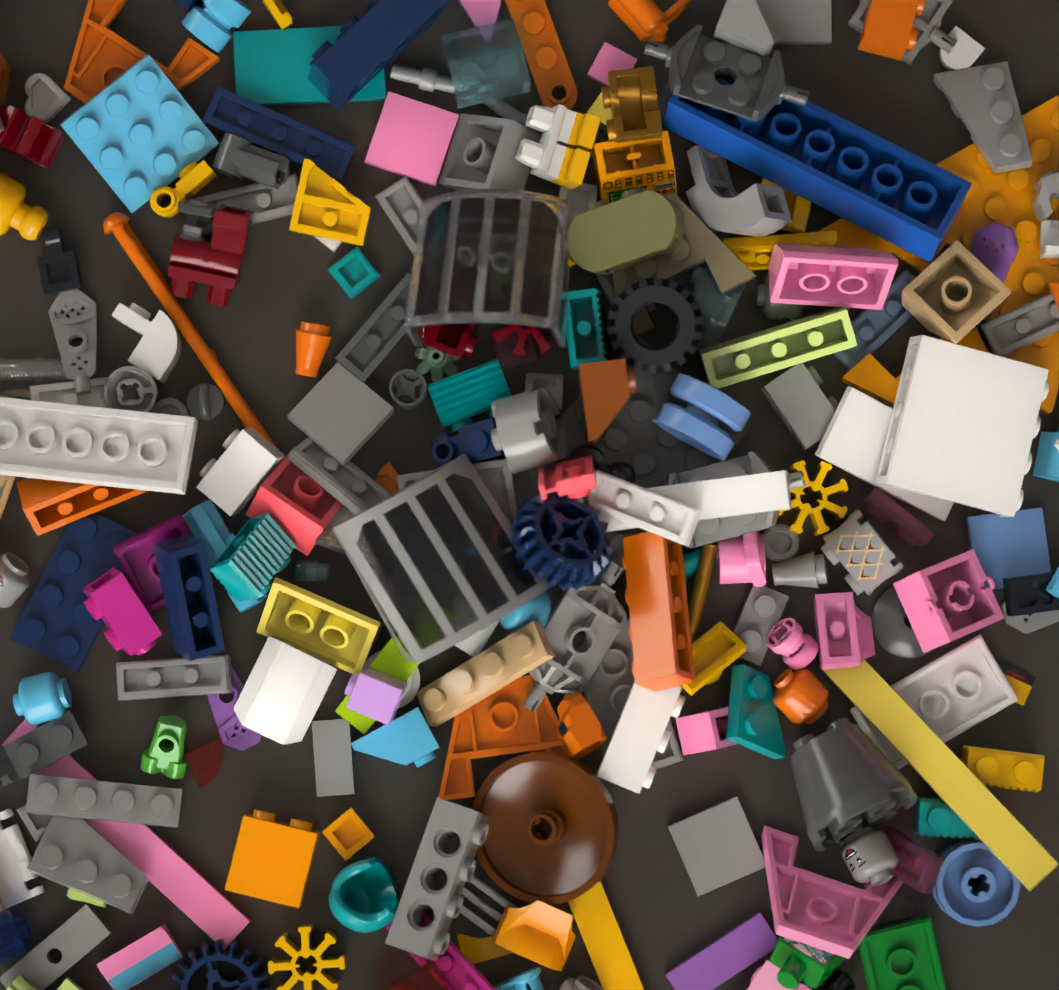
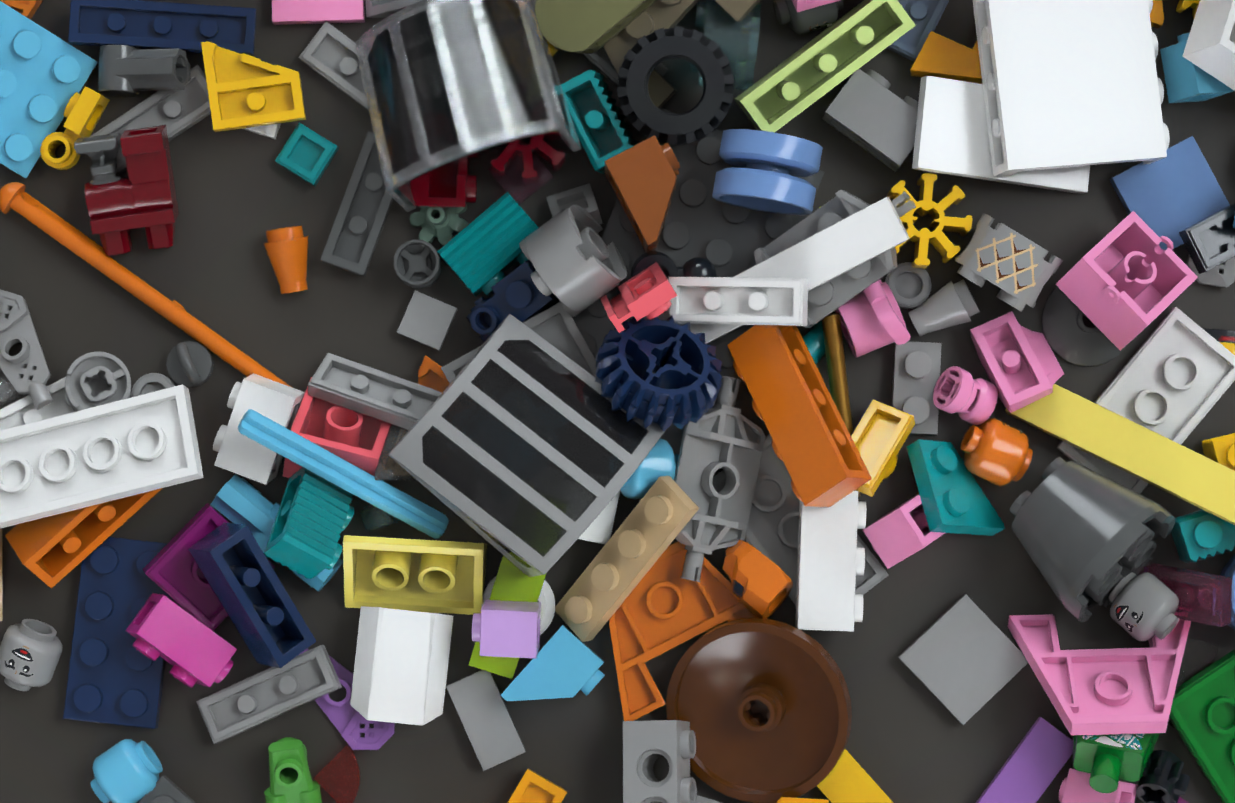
camera: 15 degrees left, 0 degrees up
(160, 344) = (112, 313): white brick -> none
(292, 530) = (343, 474): none -> medium azure axle
(340, 413) = (350, 320): light grey tile -> none
(399, 434) = (427, 320): none -> light grey tile
(909, 528) = (1050, 215): clear pink plate -> none

